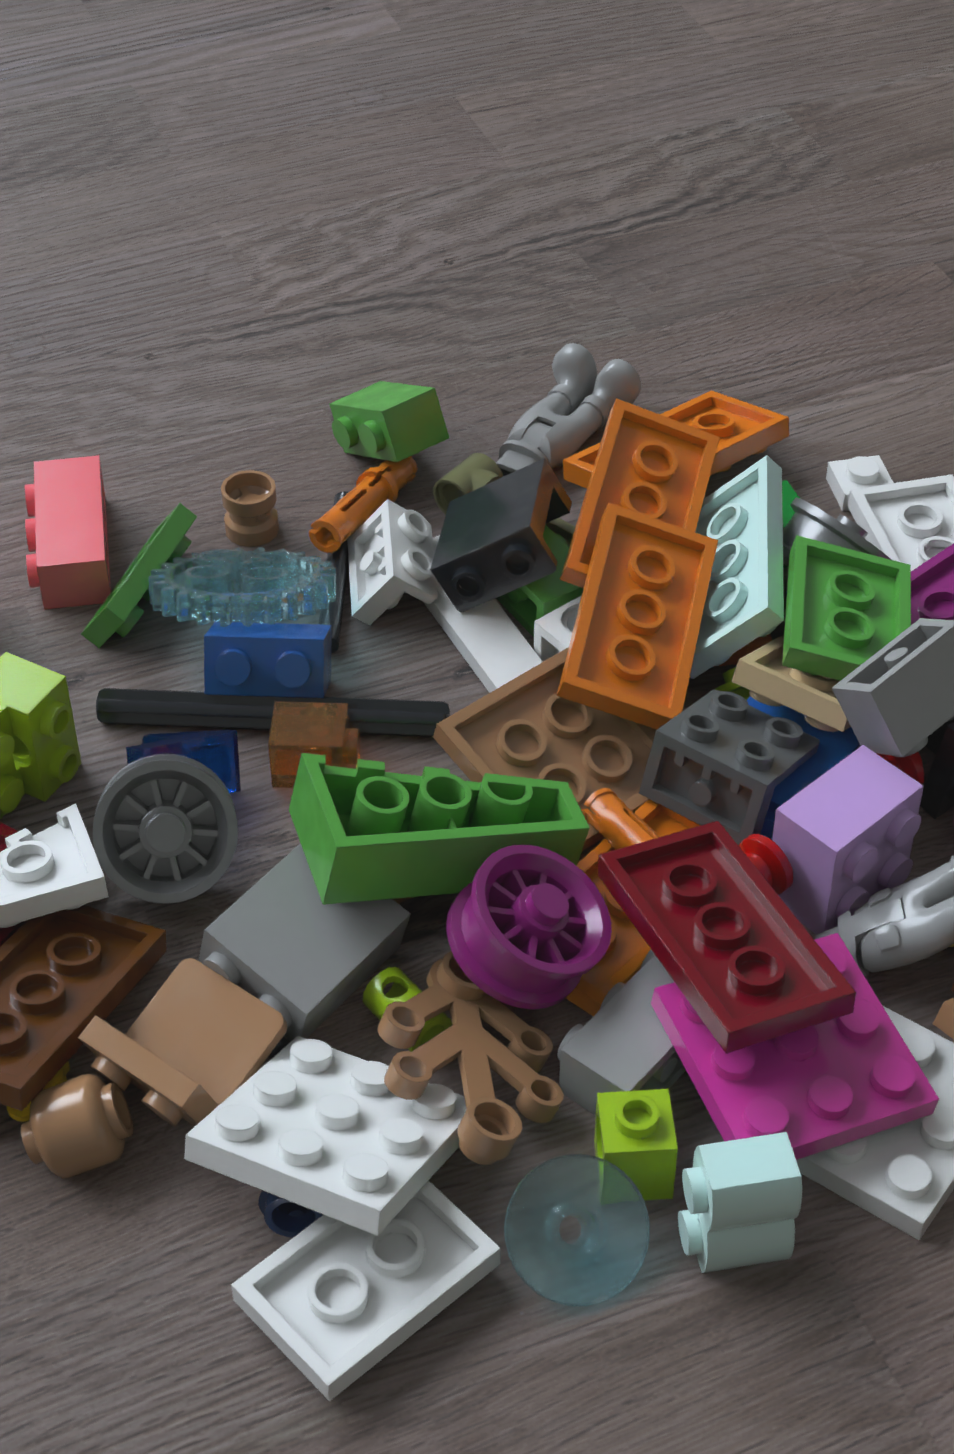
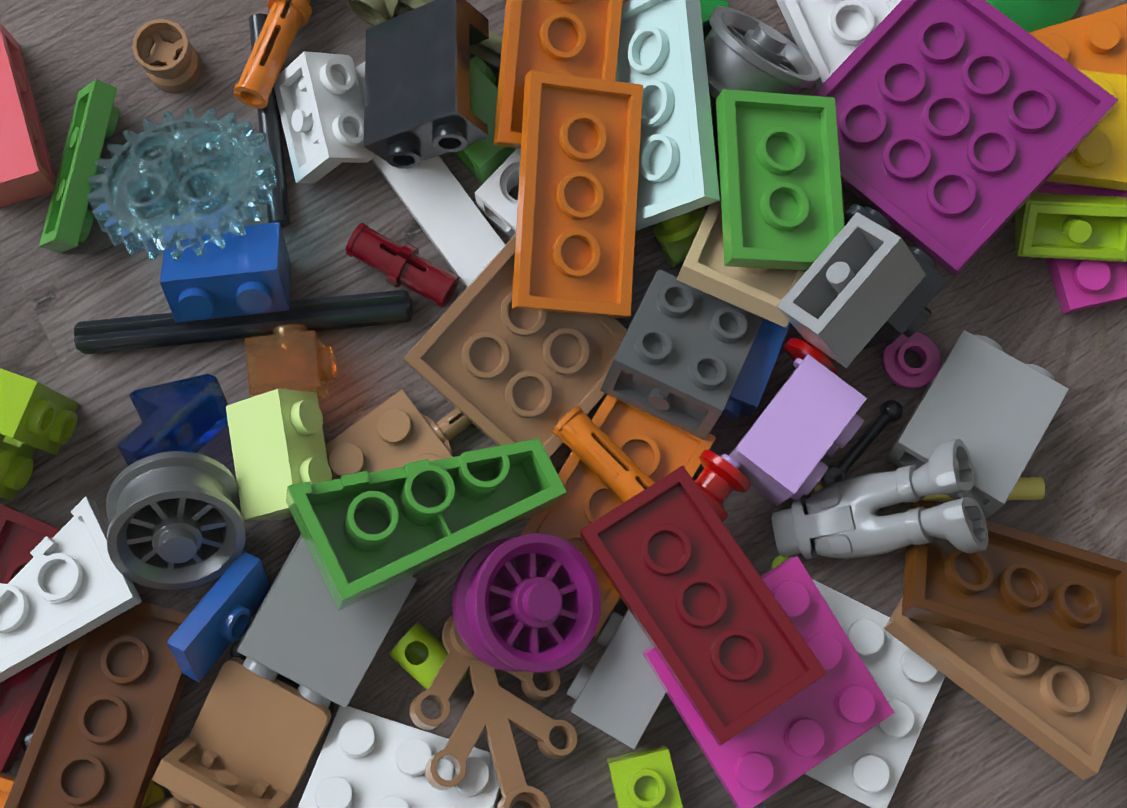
camera: 10 degrees left, 35 degrees up
(173, 923) = (220, 616): none -> blue plate
(265, 795) = (276, 445): none -> yellowish green brick
(437, 678) = (402, 265): none -> dark red pin

